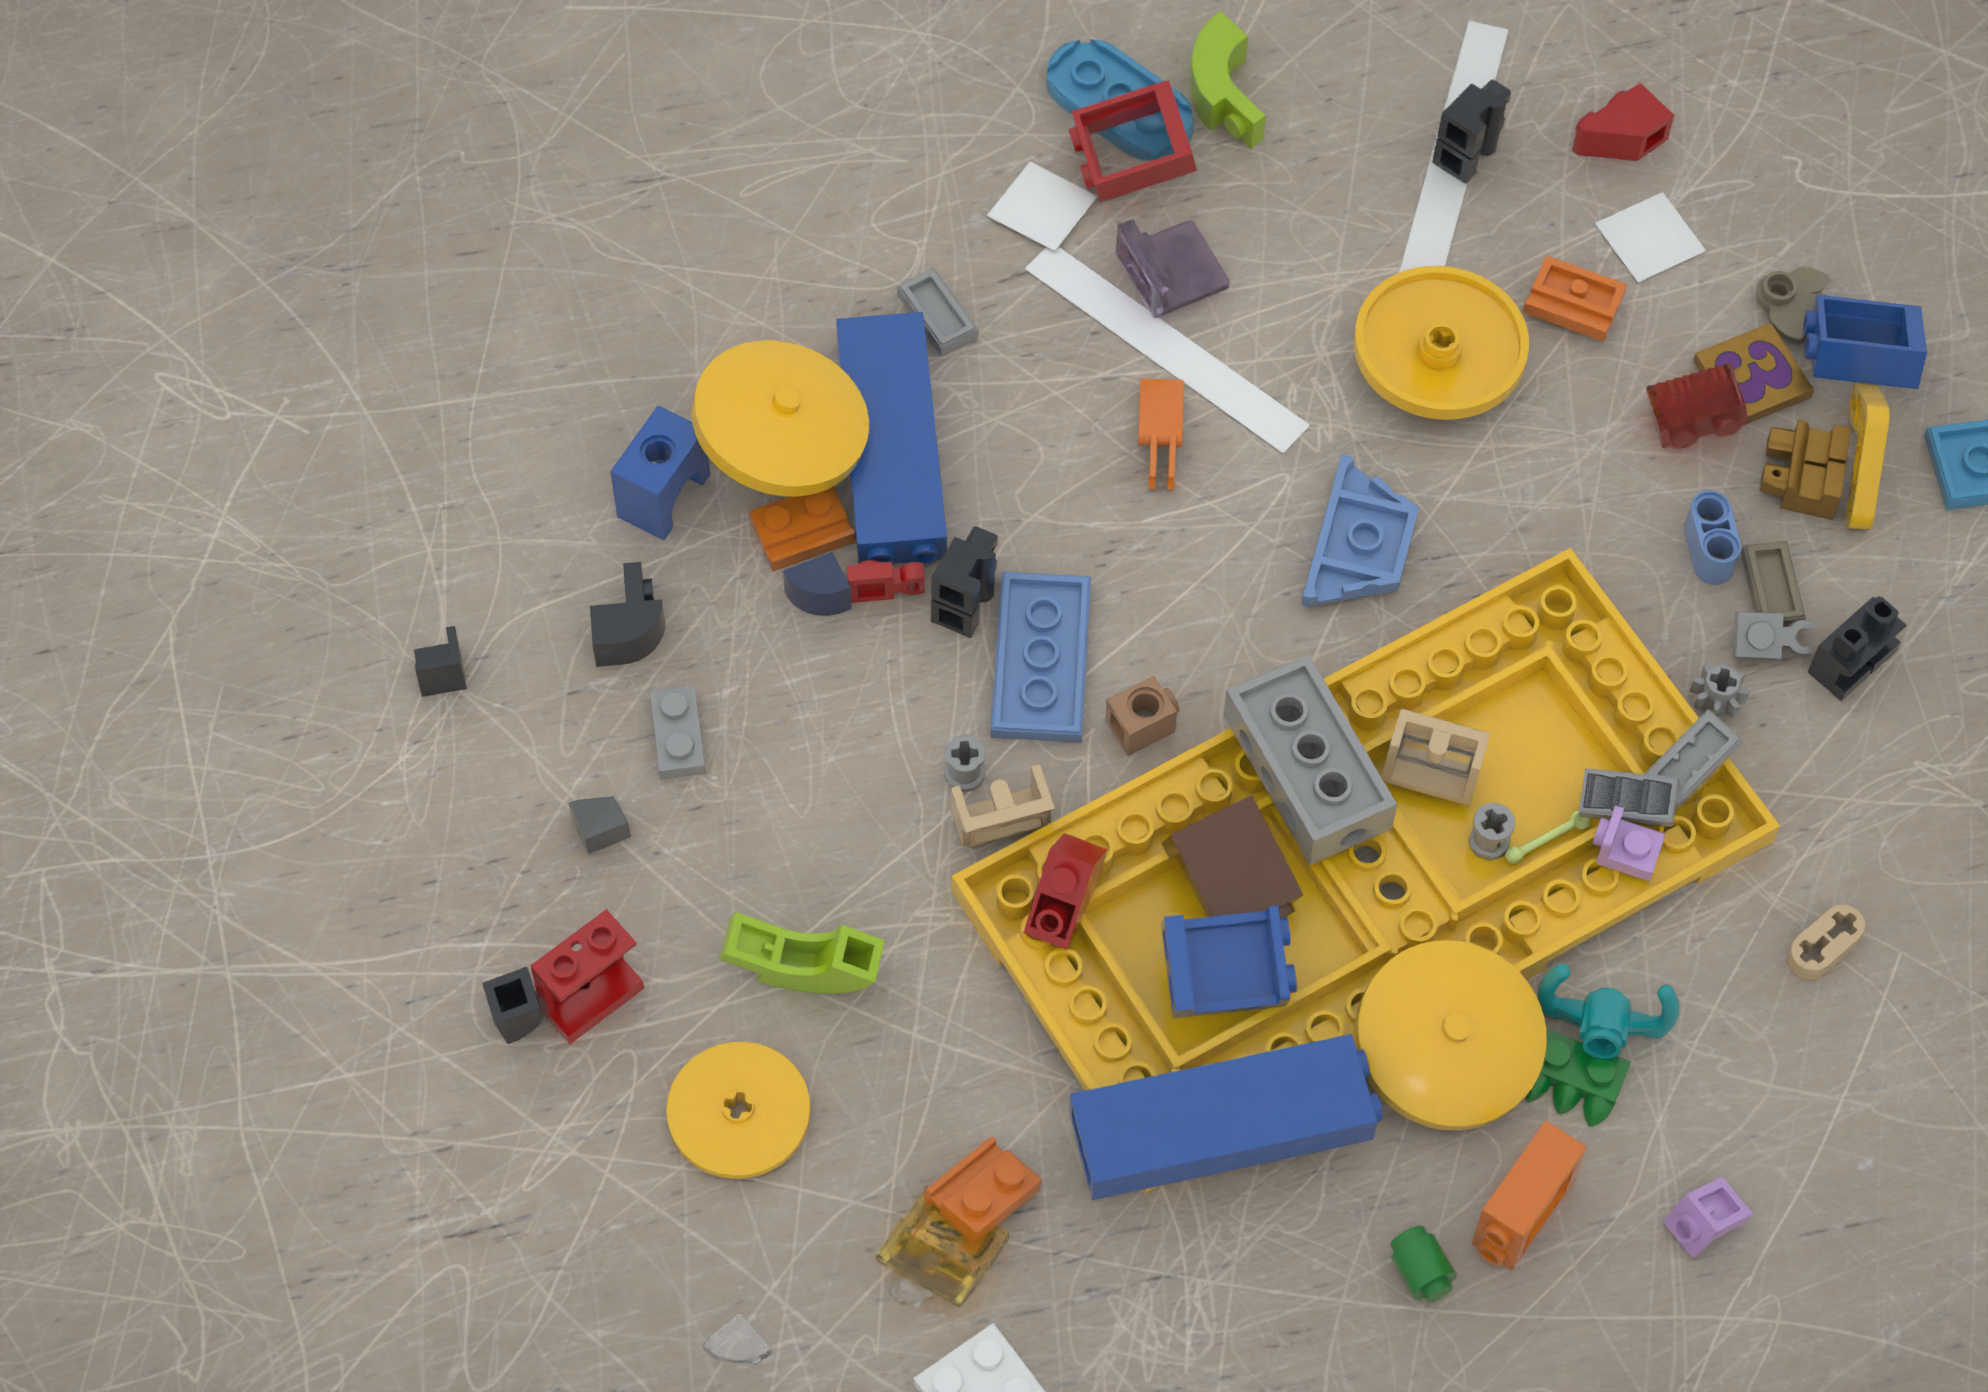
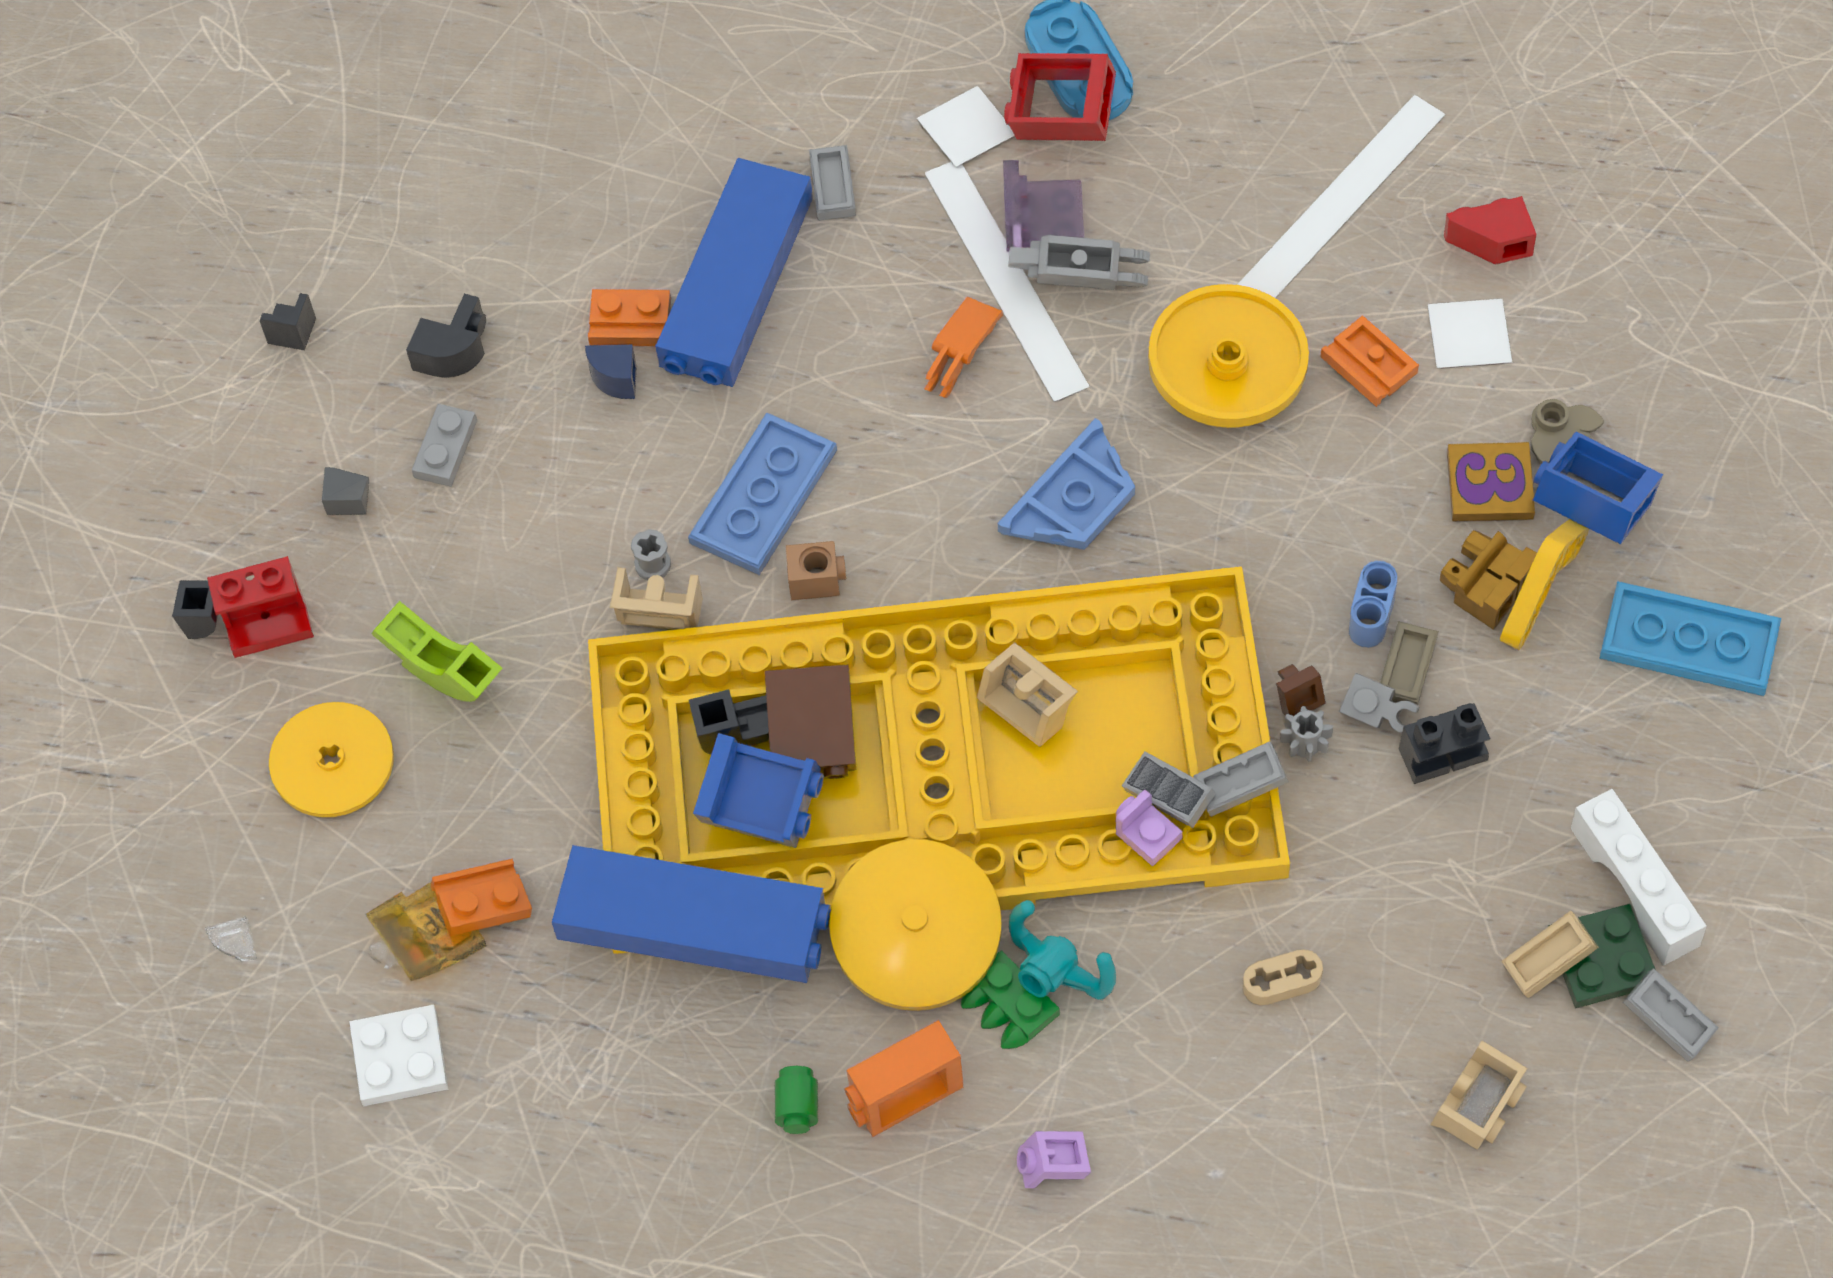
camera: 30 degrees right, 0 degrees up
(649, 490) = (516, 241): blue piece -> none
(780, 418) = (640, 220): yellow dish -> none
(880, 581) = (661, 383): red plate -> none
(963, 581) = (725, 405): black hips -> none
(1064, 890) = (664, 683): red slope -> none
(1146, 900) = (718, 714): none -> black brick
(1216, 99) = (1166, 56): lime arch -> none
(1240, 302) = (1079, 262): none -> light grey hinge
(1309, 759) = (914, 655): light grey brick -> none
(1470, 128) = (1352, 183): black hips -> none
(1491, 831) = (1035, 767): light grey bush -> none
(1515, 854) = (1058, 801): yellowish green hinge -> none
(1689, 650) = (1300, 689): none -> reddish brown tile
(1697, 406) = (1419, 488): clear red brick -> none

